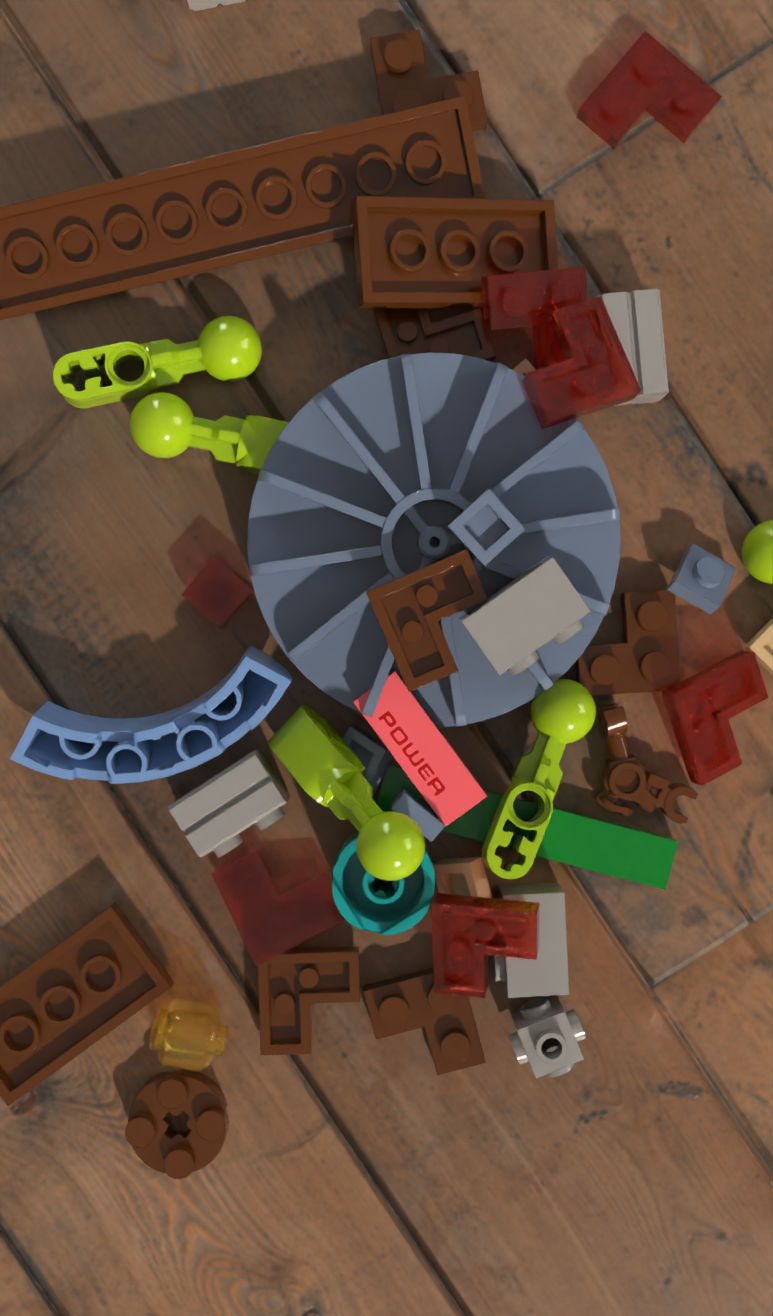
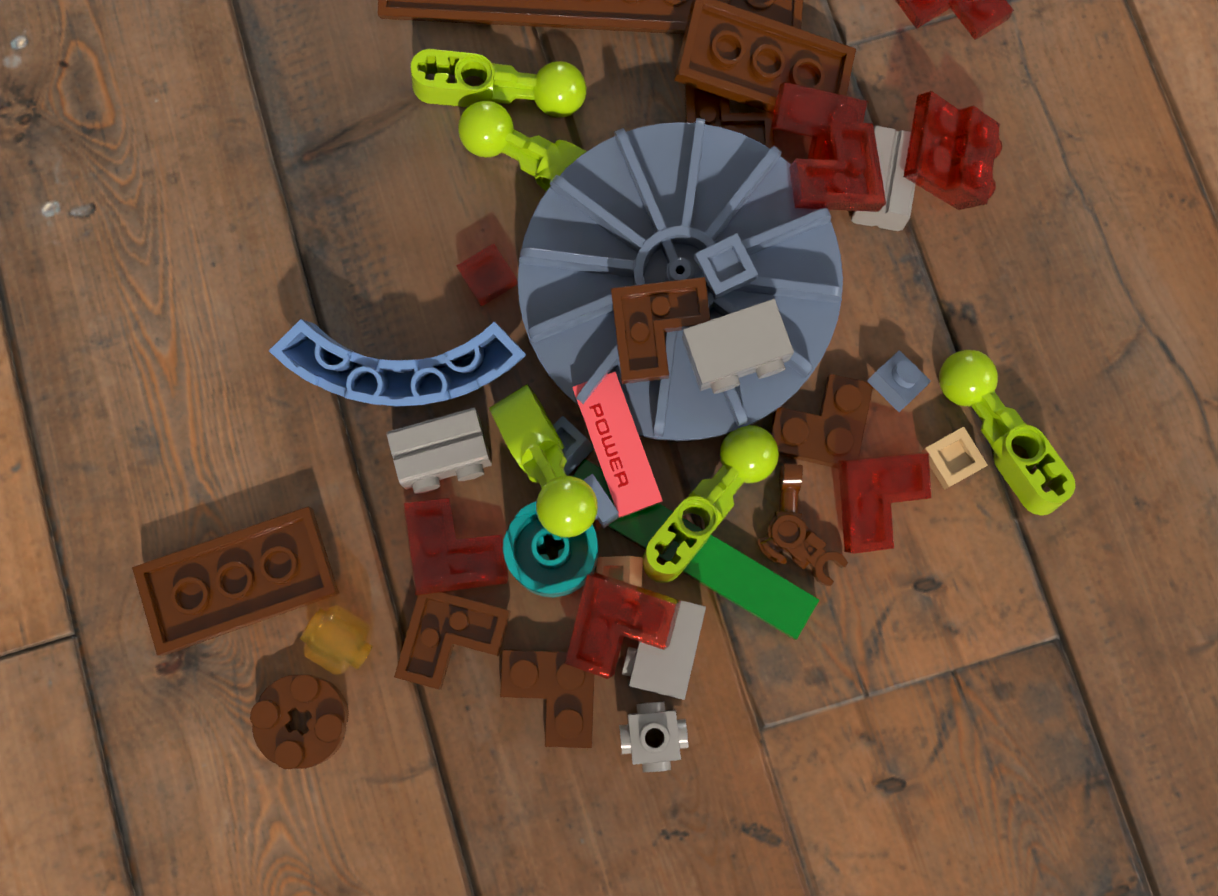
camera: 15 degrees right, 10 degrees down
(696, 297) = (952, 152): none -> clear red plate

